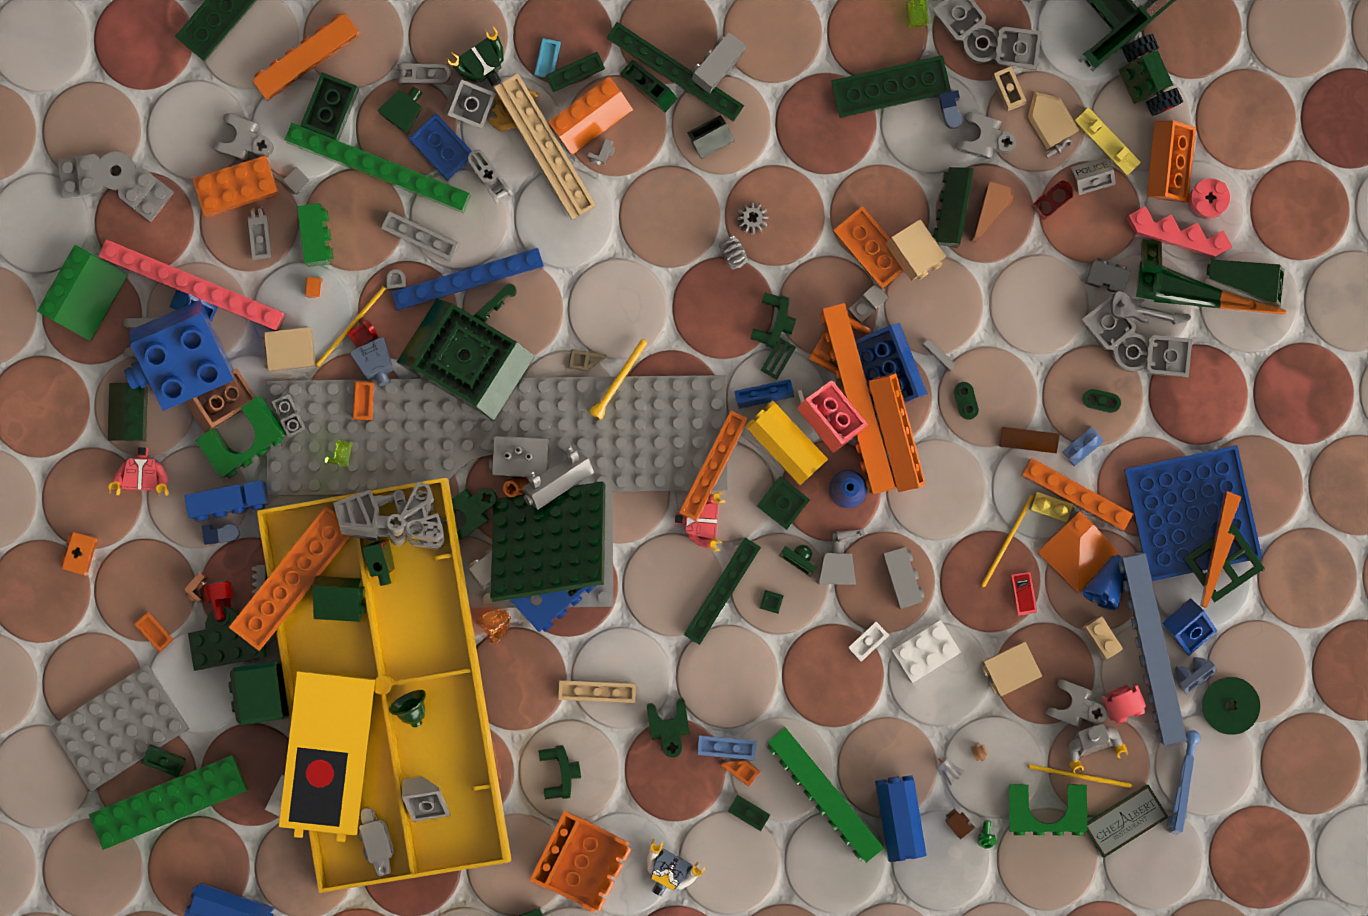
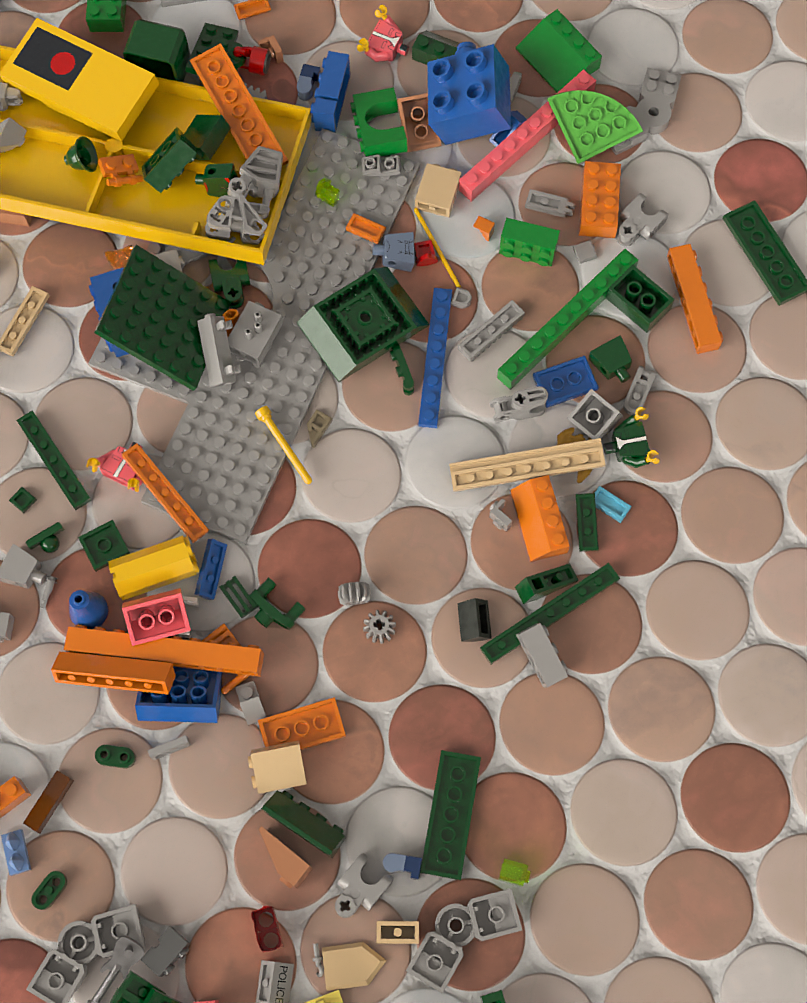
camera: 115 degrees right, 15 degrees down
(158, 223) = (592, 122): none -> bright green plate
(381, 617) = (169, 160): none -> dark green slope
(404, 666) = (120, 165): none -> orange plate

